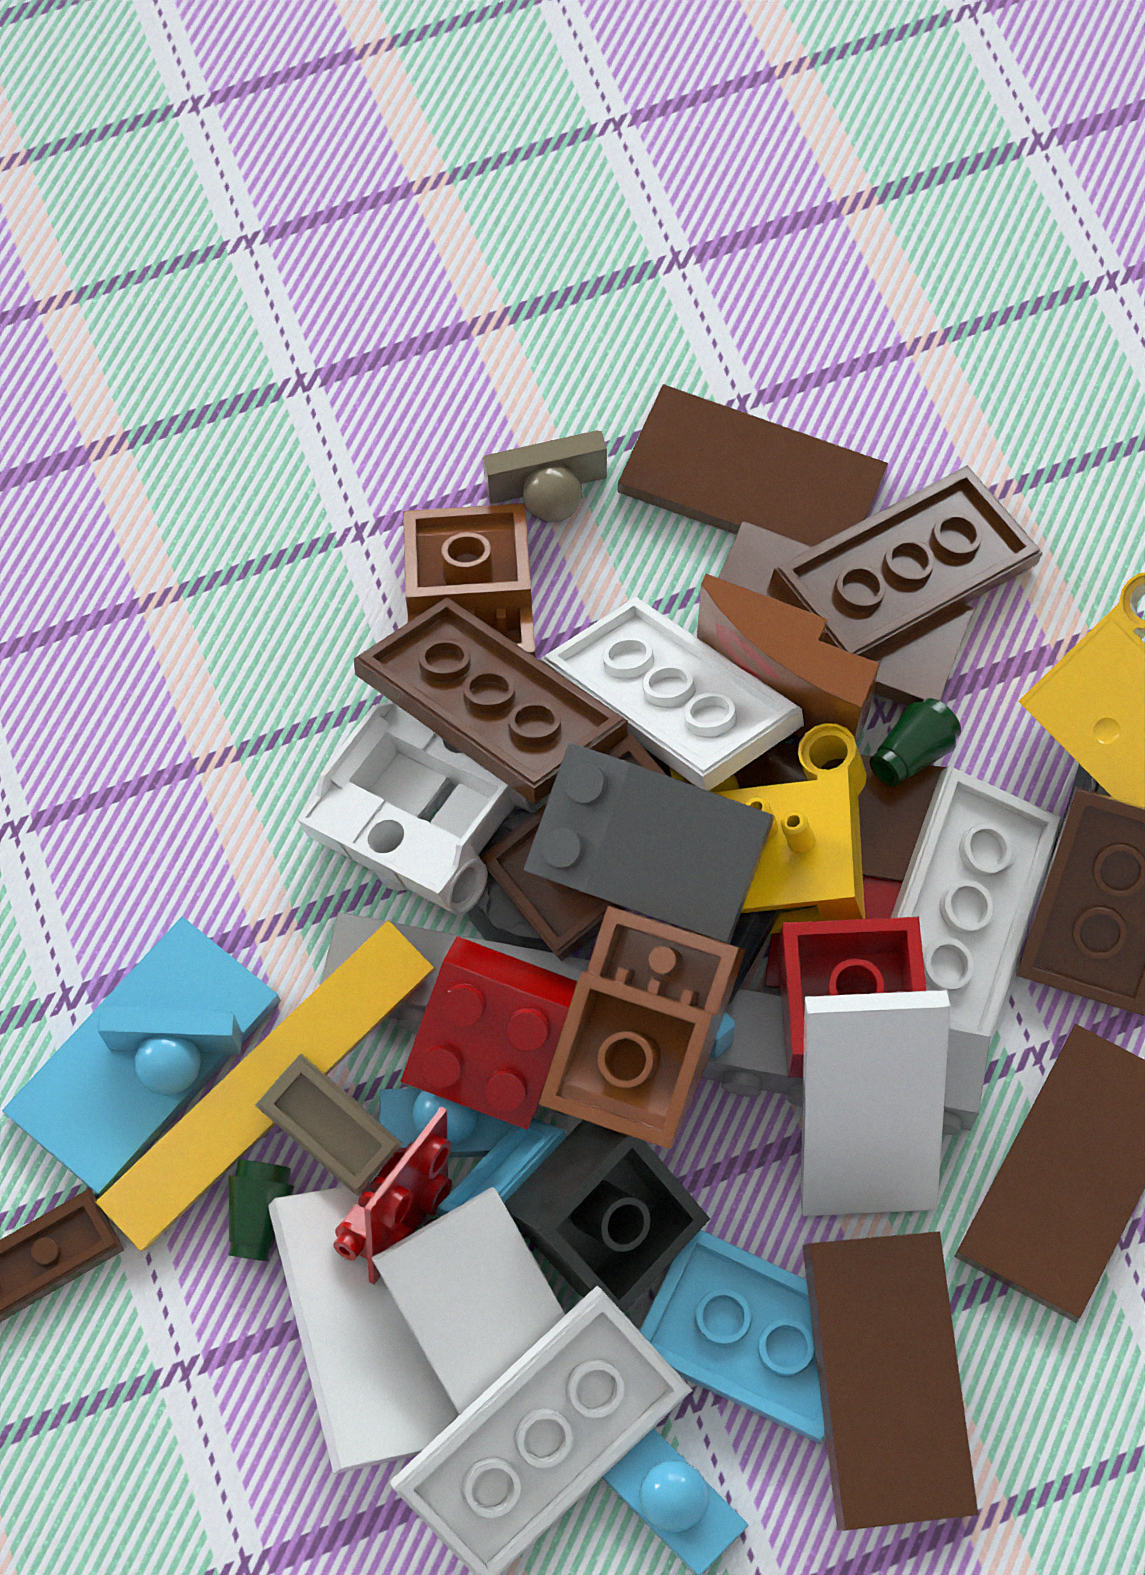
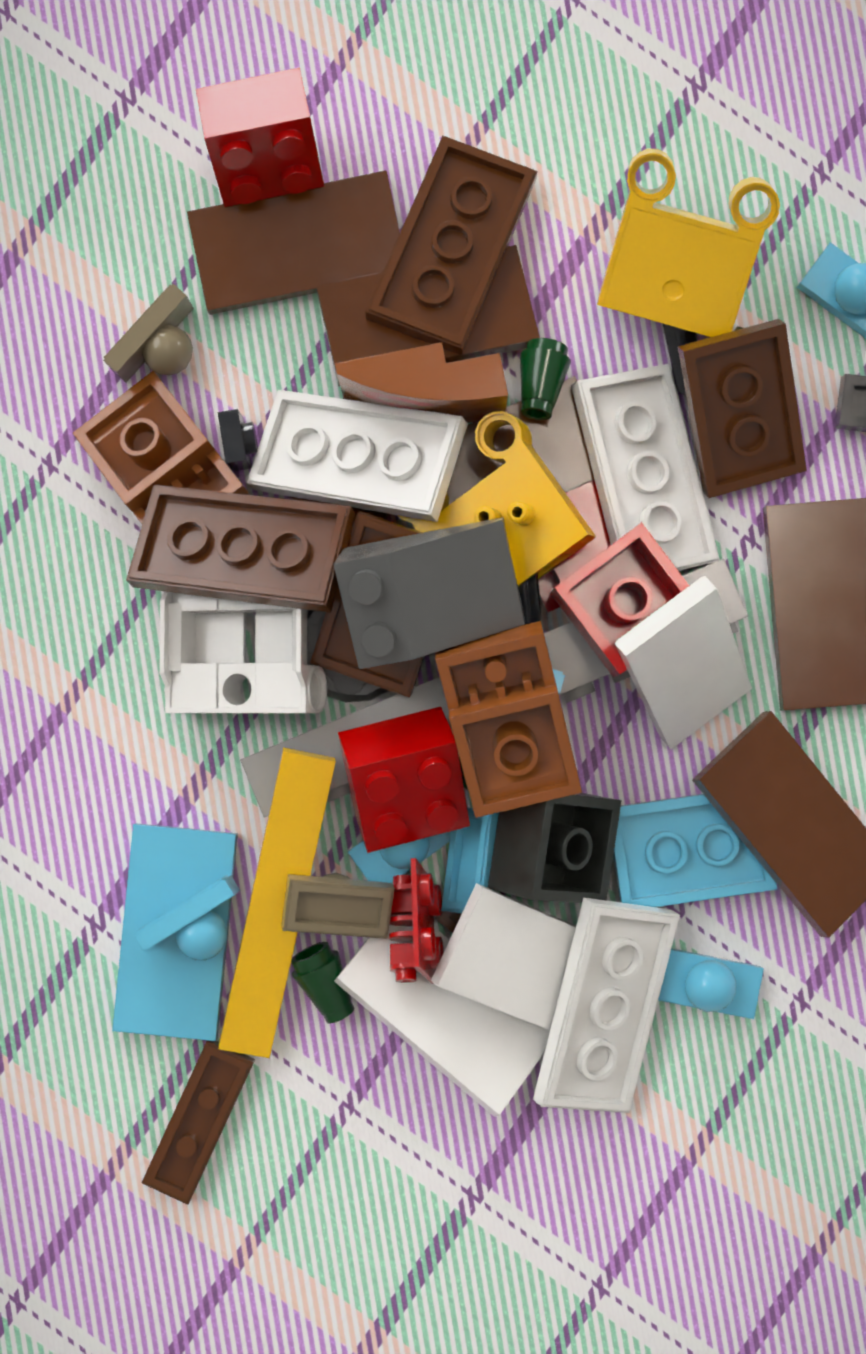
camera: 35 degrees left, 20 degrees up
(560, 614) = (238, 439): none -> black plate
(780, 352) = (260, 137): none -> red brick

